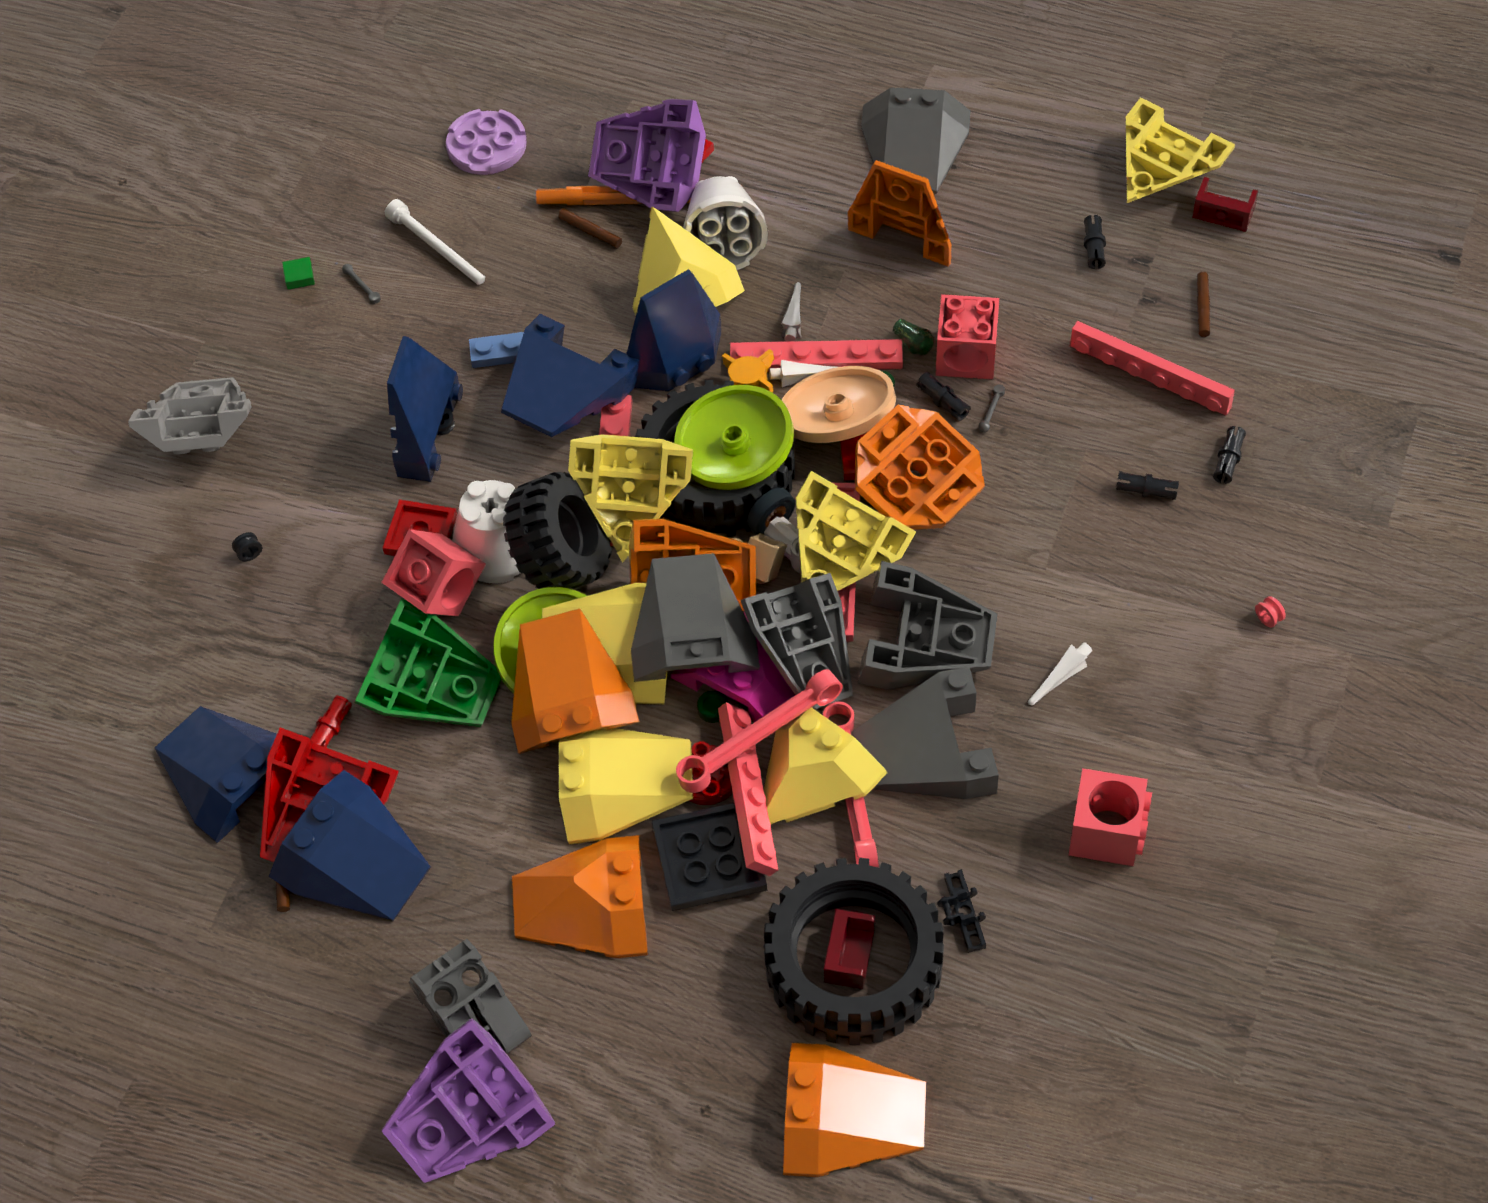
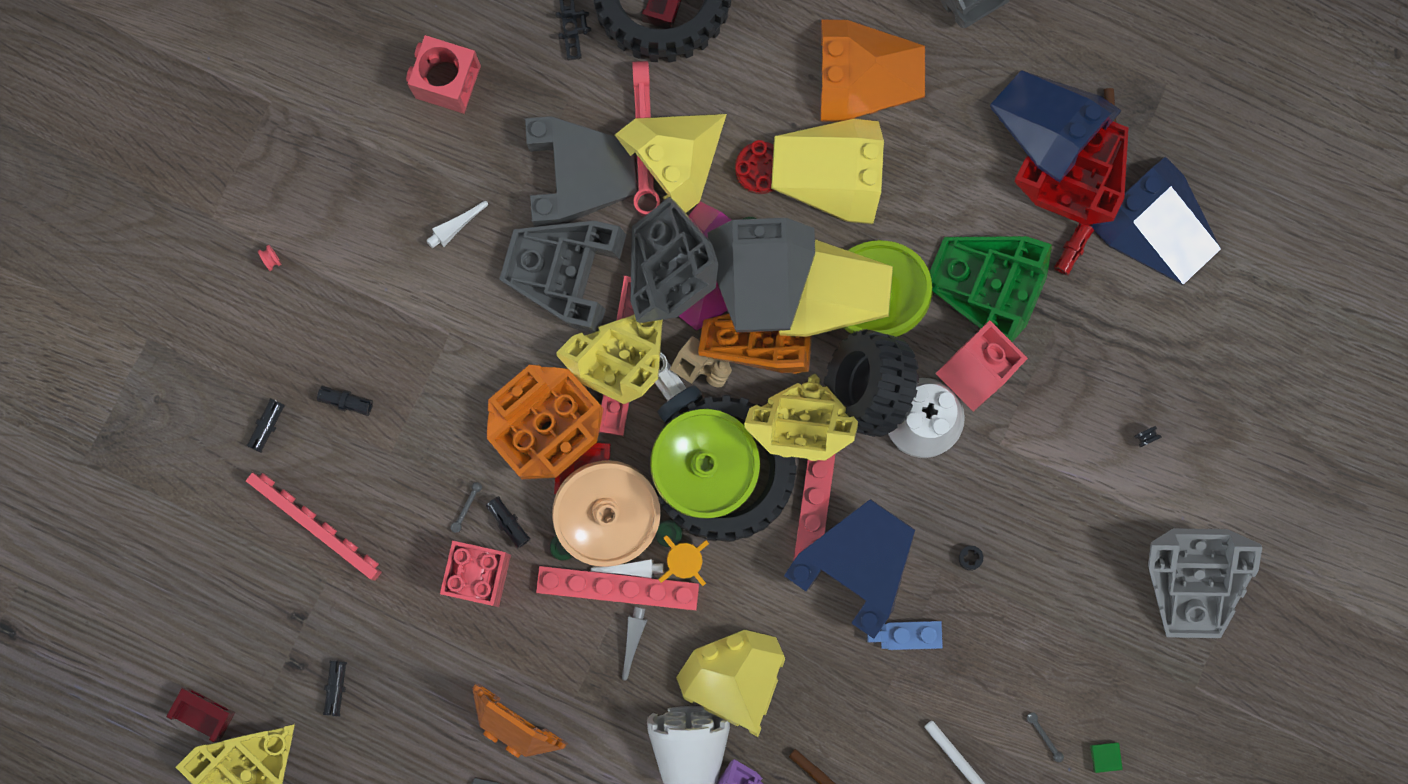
camera: 175 degrees left, 25 degrees up
(417, 396) = (989, 550): dark blue wedge -> none
(418, 517) = (993, 434): red plate -> none
(565, 683) = (871, 240): orange wedge -> none
(674, 334) = (743, 596): dark blue wedge -> none
(704, 857) = (765, 91): black plate -> none
(749, 796) = (729, 139): coral plate -> none
(820, 690) = (664, 201): coral piece -> none
(916, 338) = (524, 594): cone -> none
(1203, 304) = (249, 601): reddish brown piece -> none

